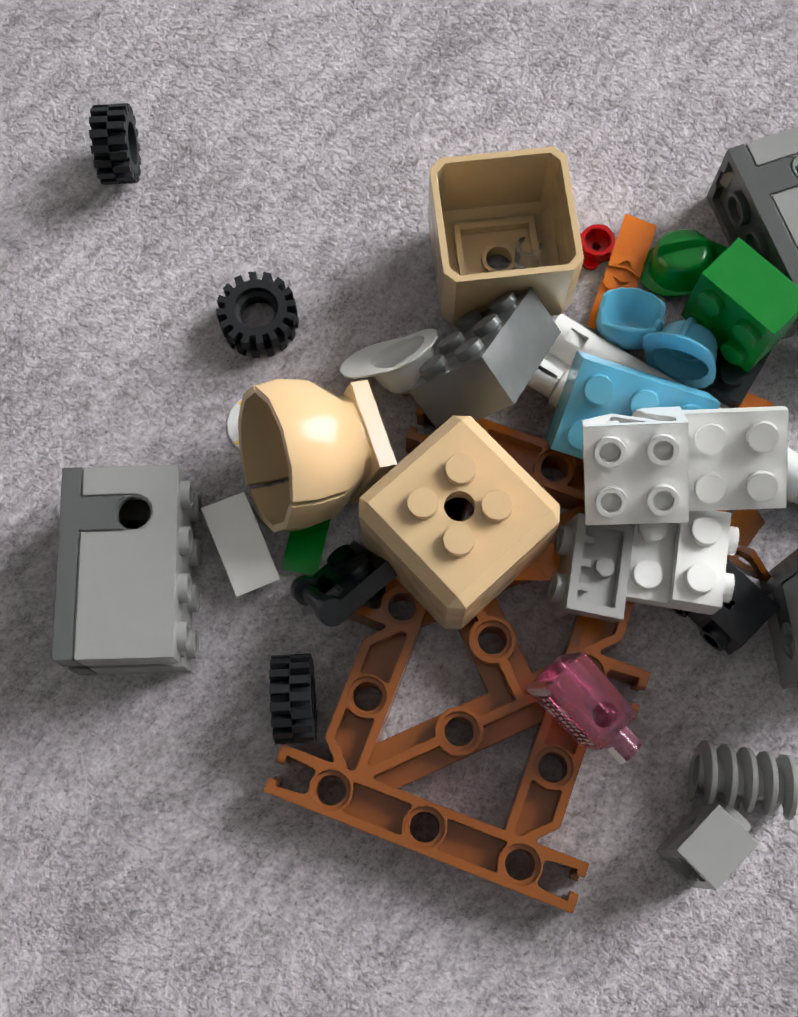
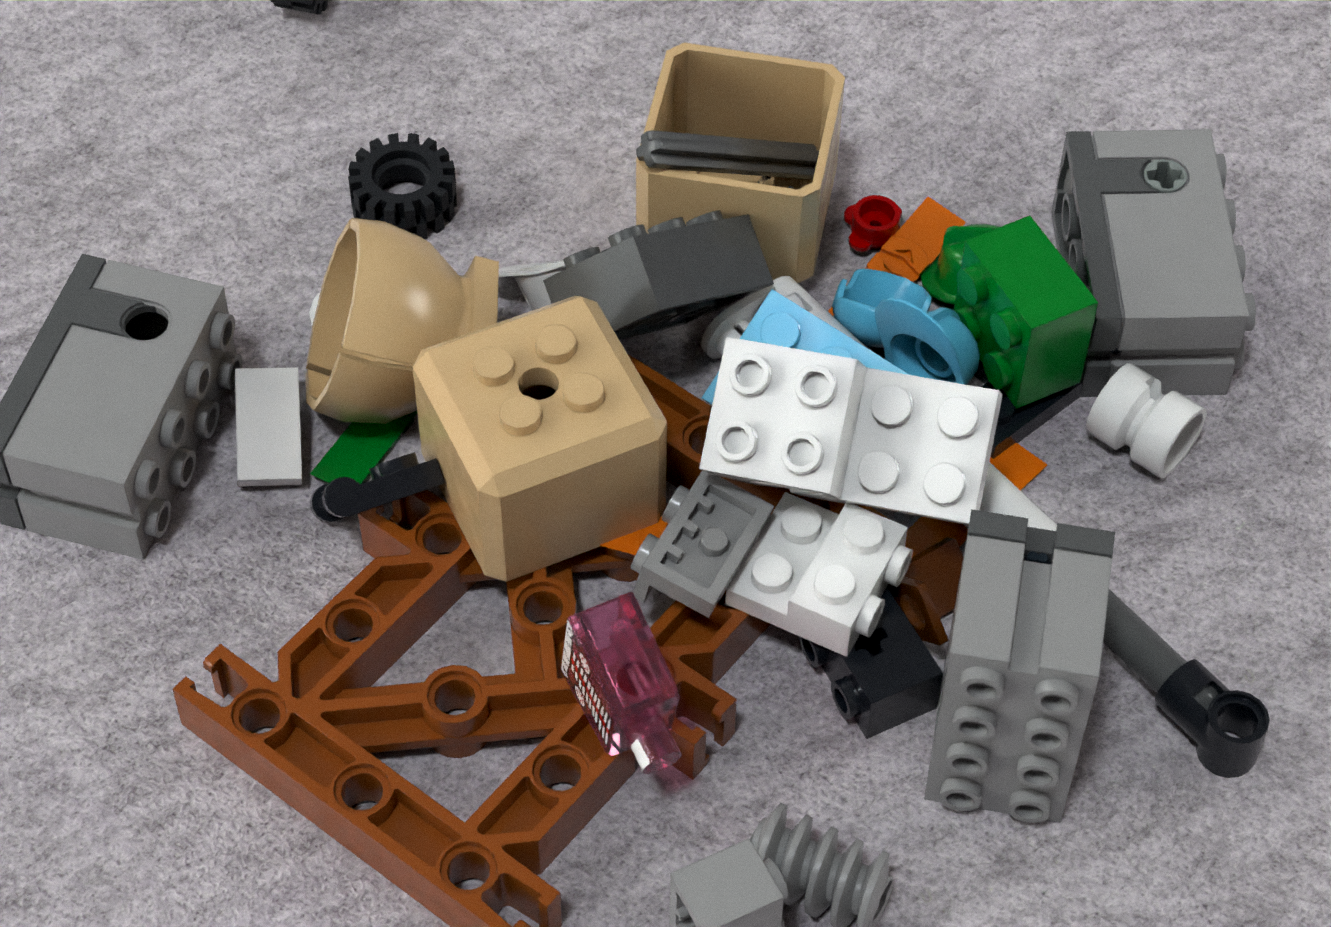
camera: 15 degrees right, 20 degrees down
(292, 698) = (257, 600): black tyre -> none
(498, 240) = (727, 155): none -> dark grey axle

